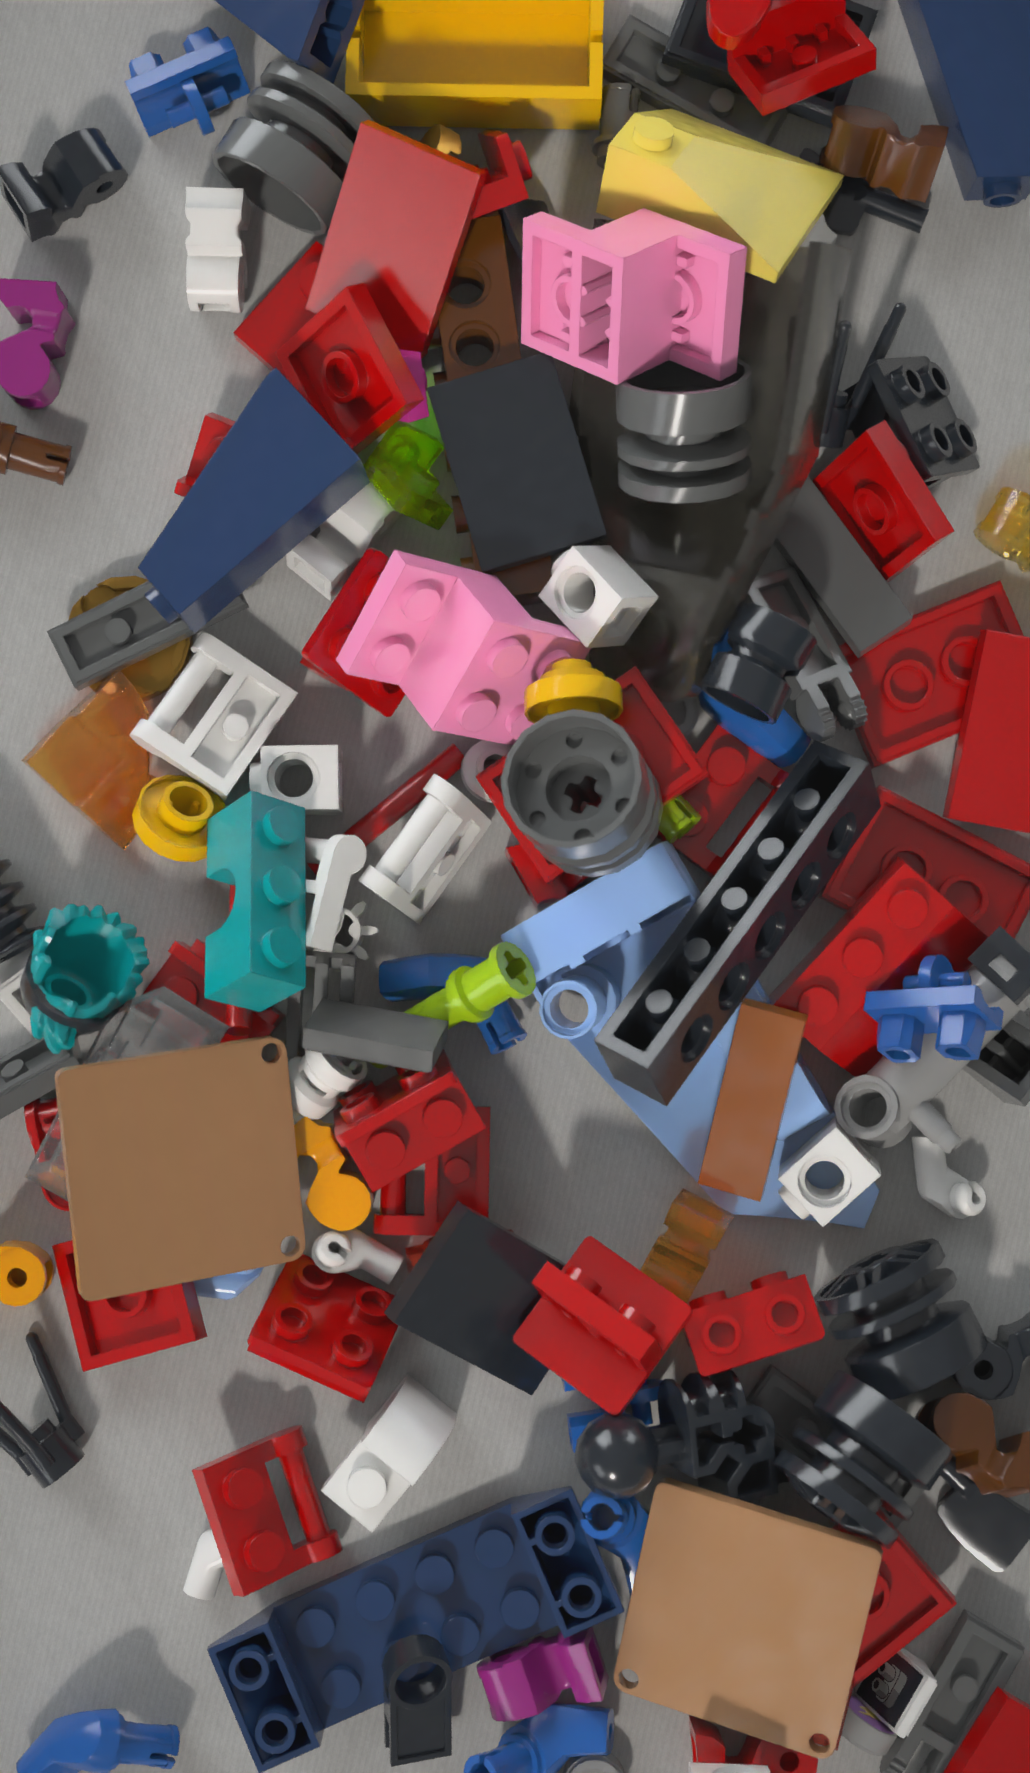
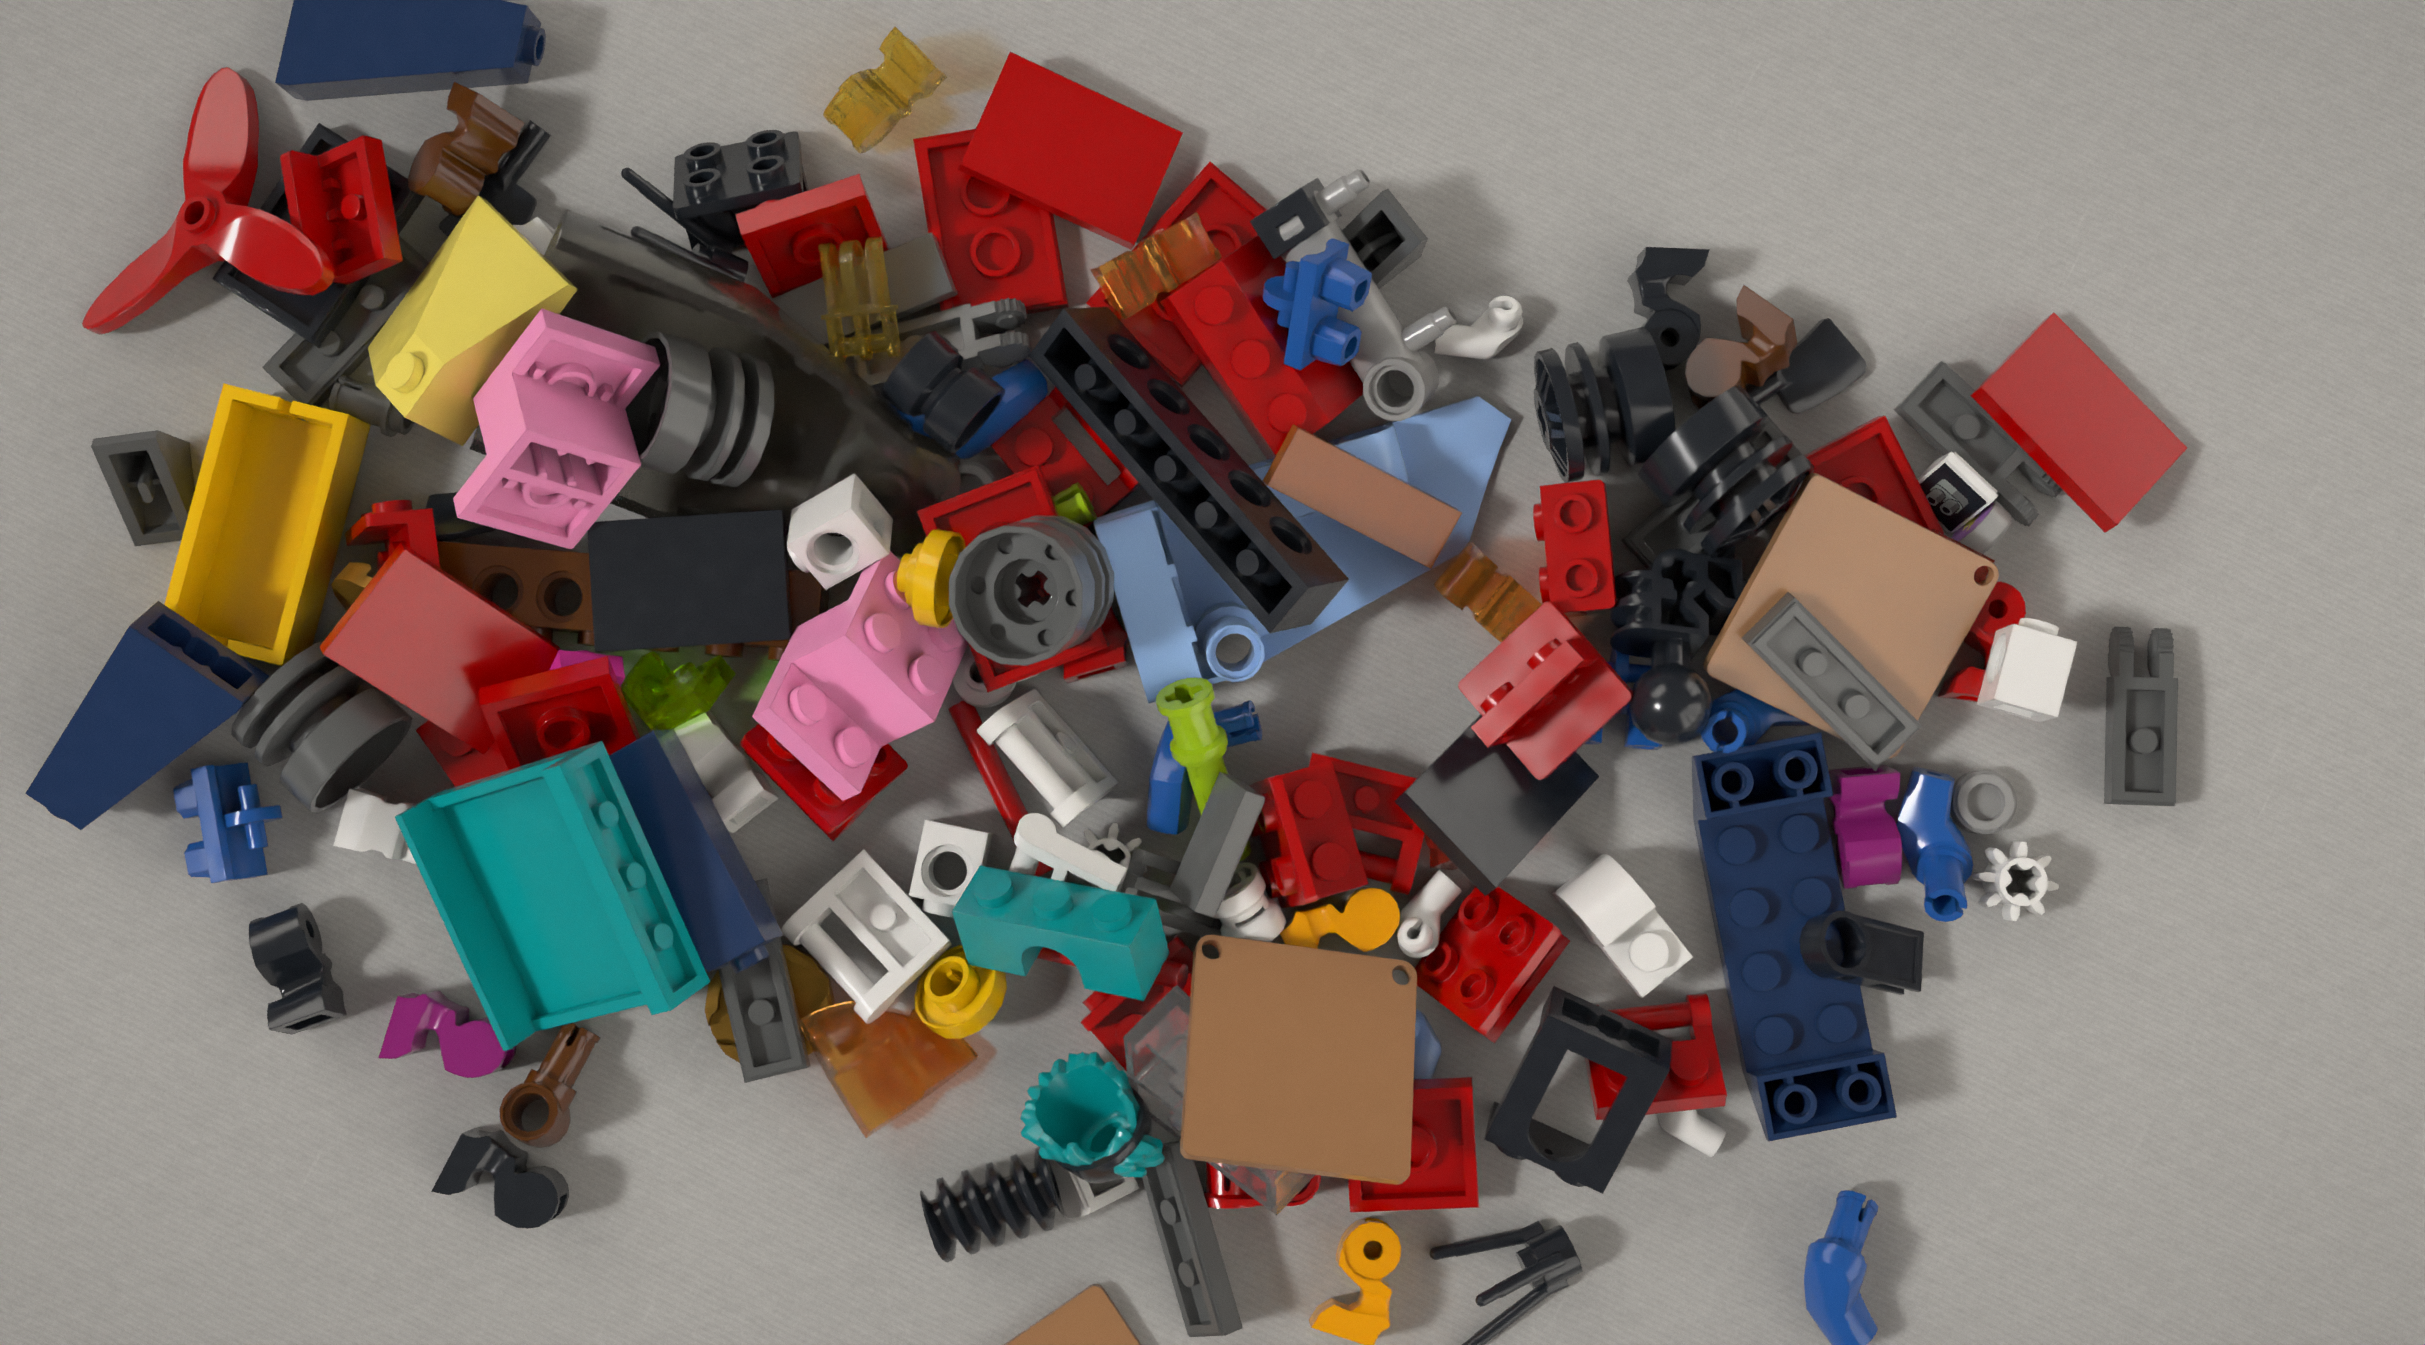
camera: 75 degrees left, 0 degrees up
(180, 402) = (552, 895): none -> teal panel
(271, 1457) = (1604, 1039): none -> black panel
(677, 1611) = (1831, 681): none -> dark grey tile
(830, 1145) = (1429, 422): white brick -> none
(841, 557) = (858, 287): none -> clear yellow arm
(934, 845) = (1156, 266): none -> clear orange leg

